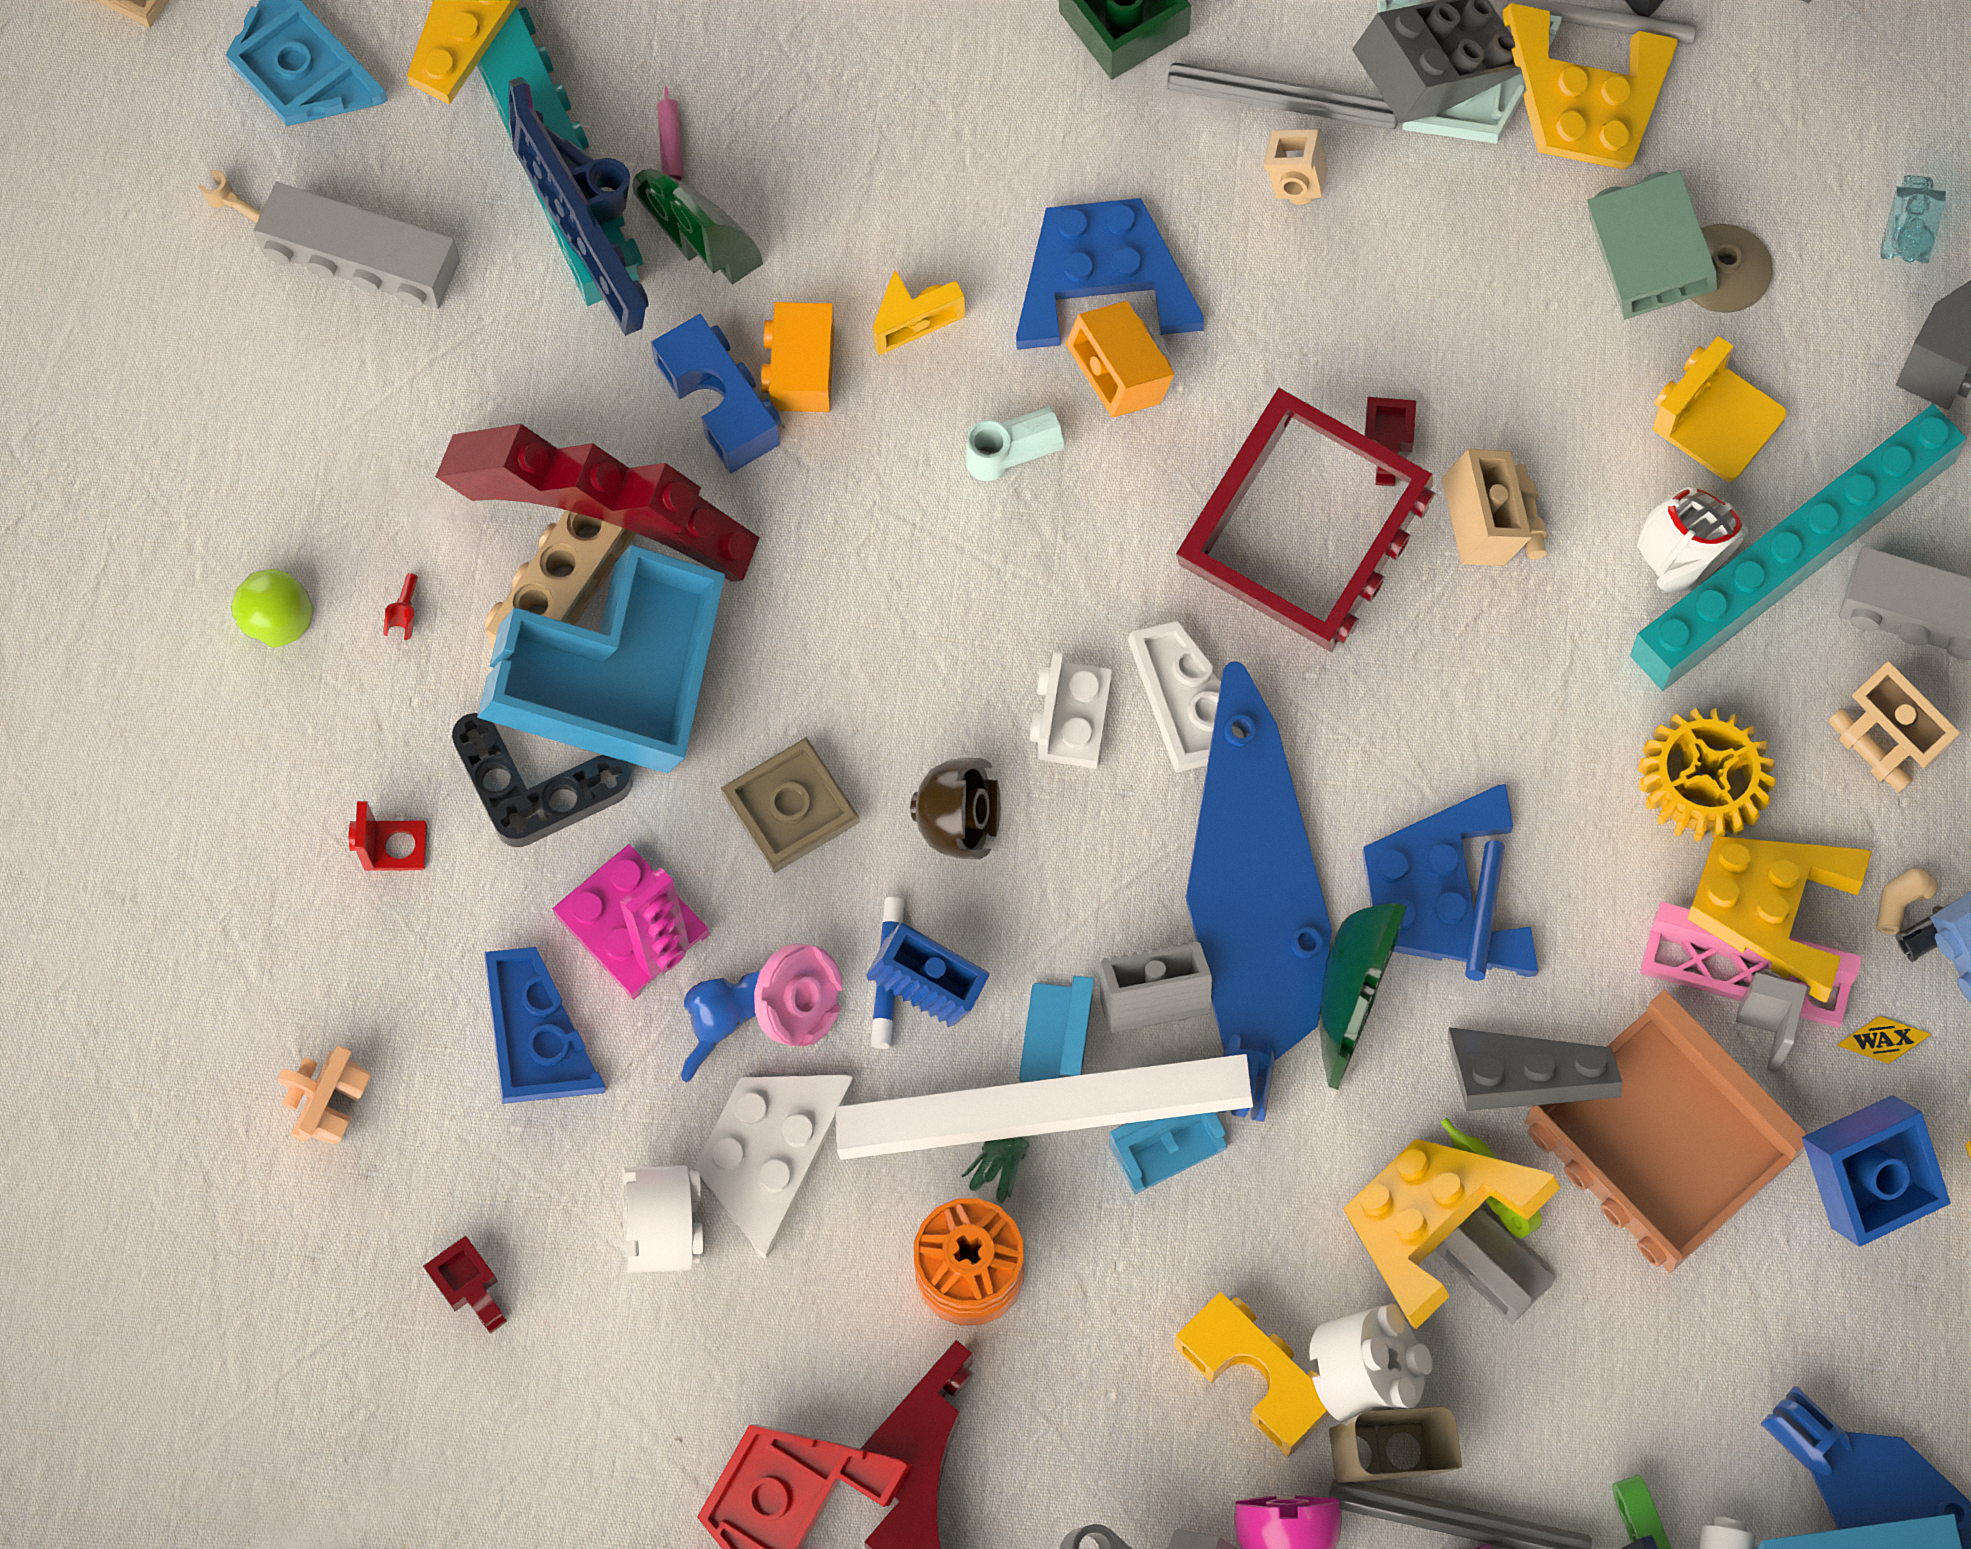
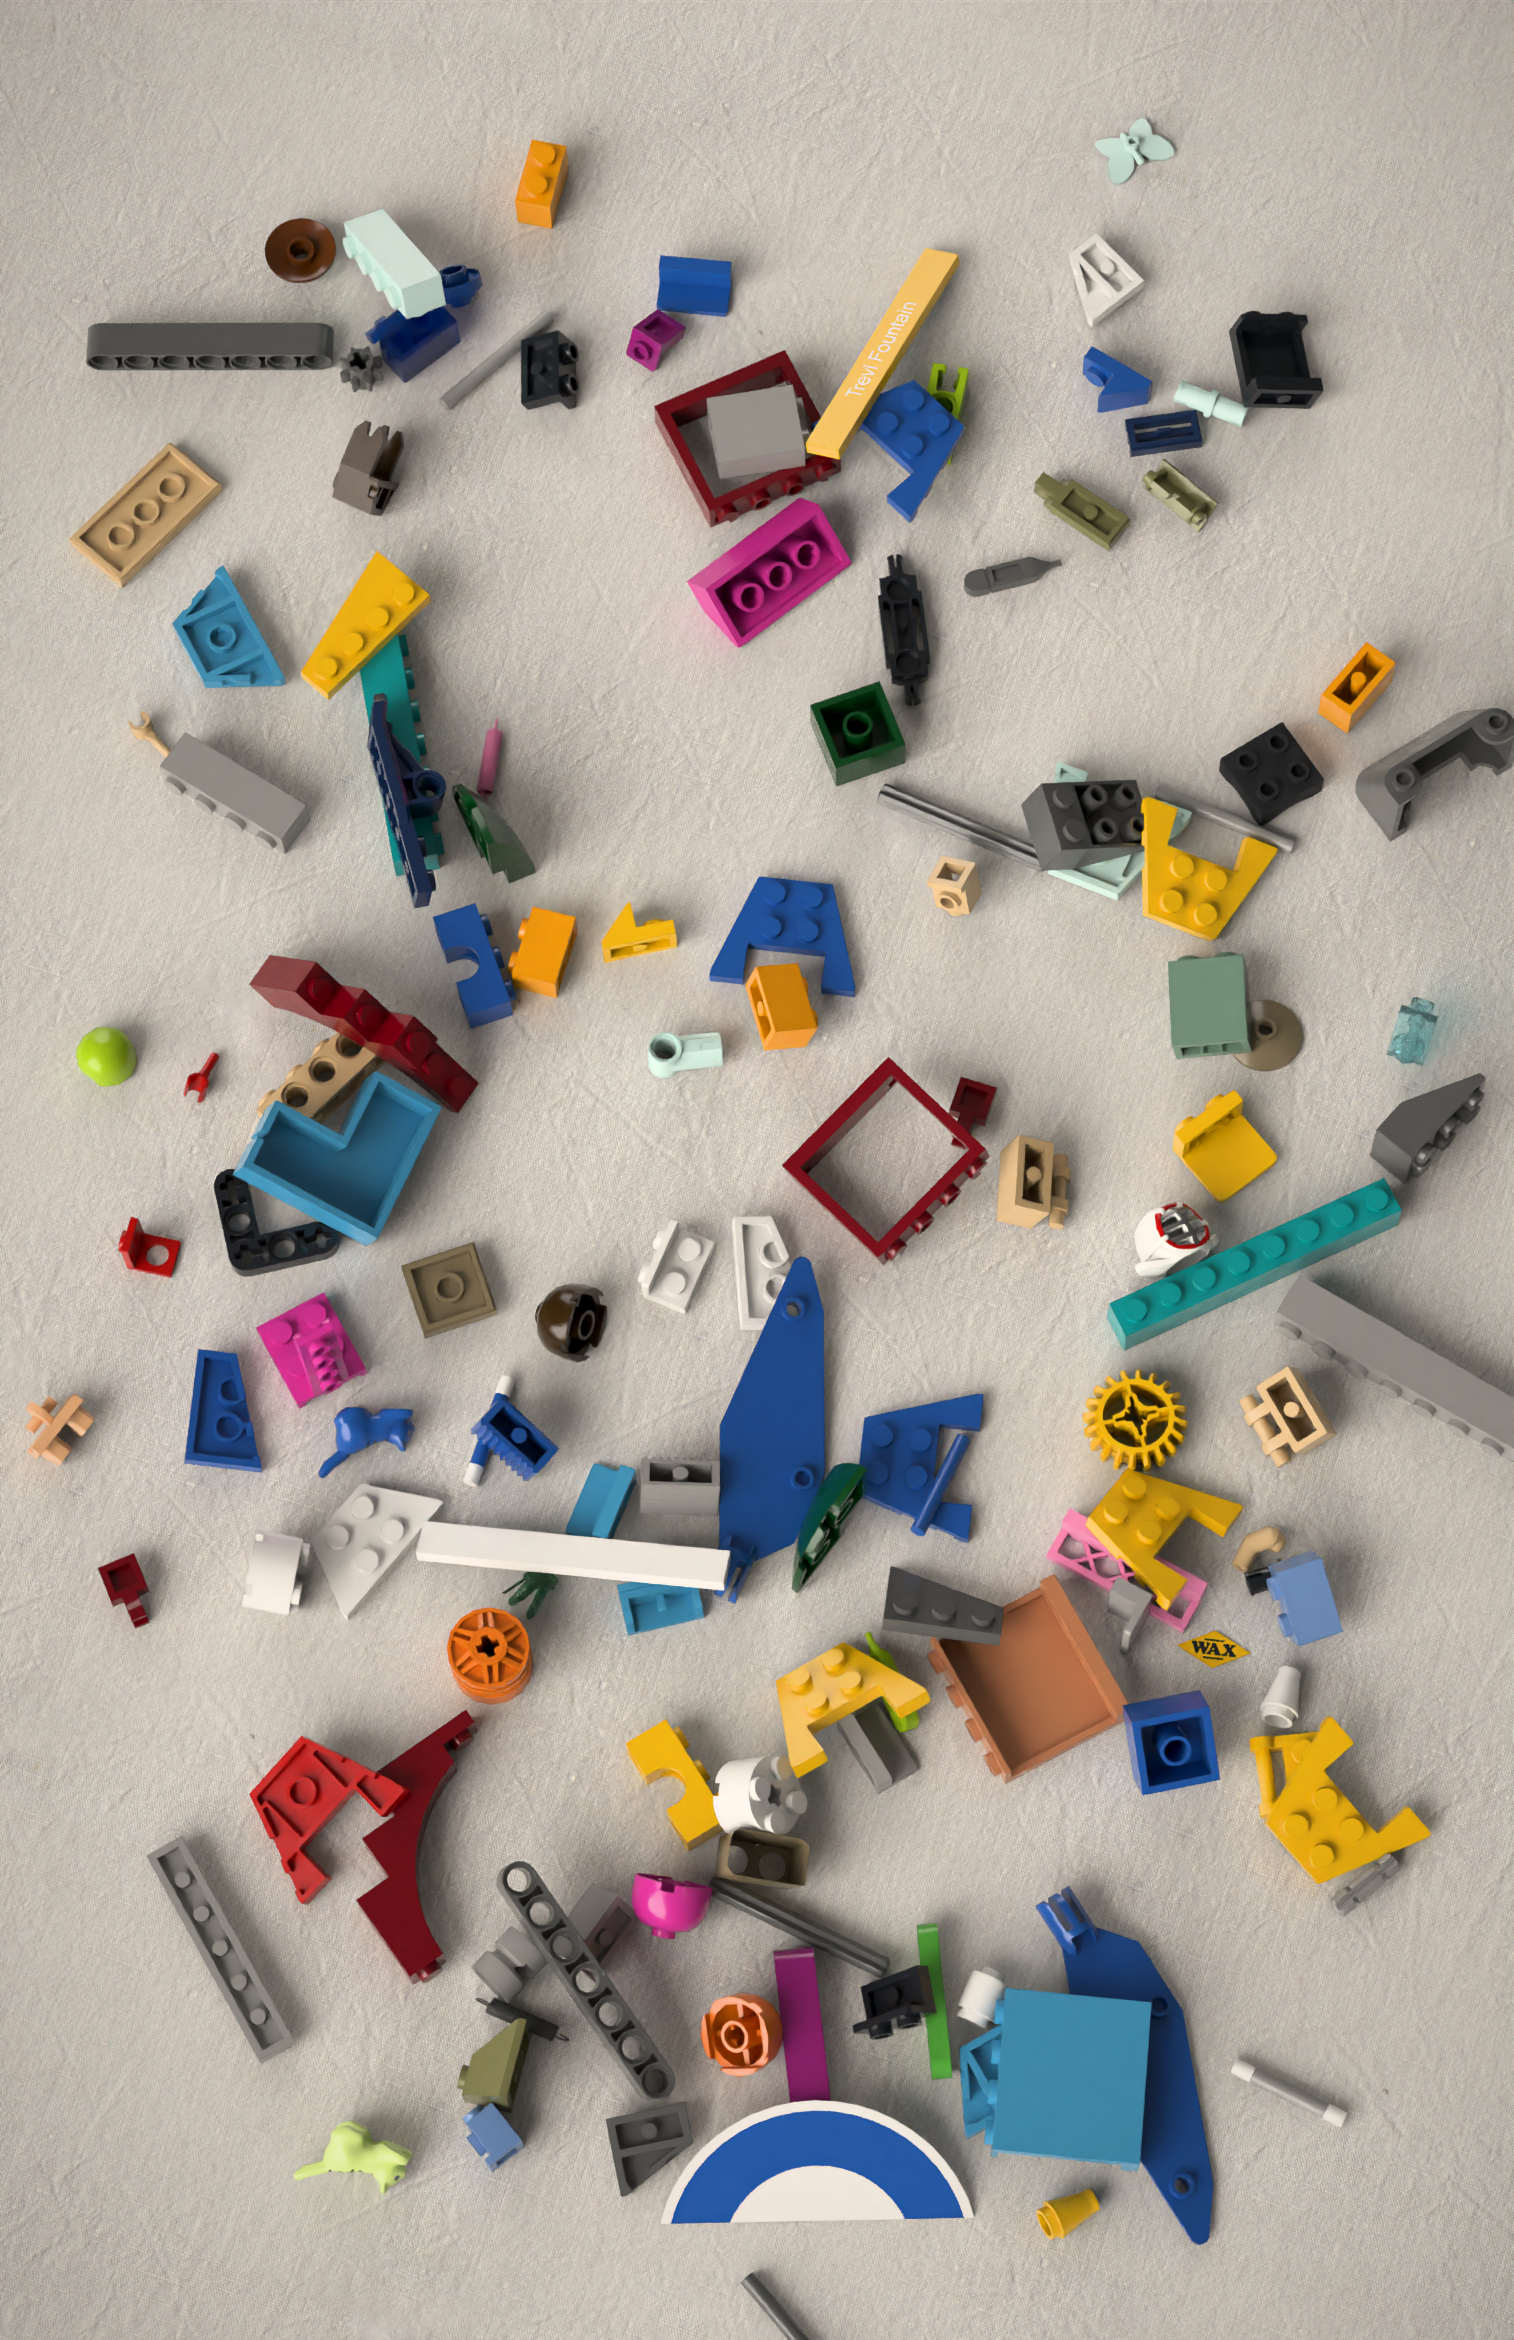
camera: 15 degrees right, 0 degrees up
(798, 995) = (416, 1432): bright pink tile -> none

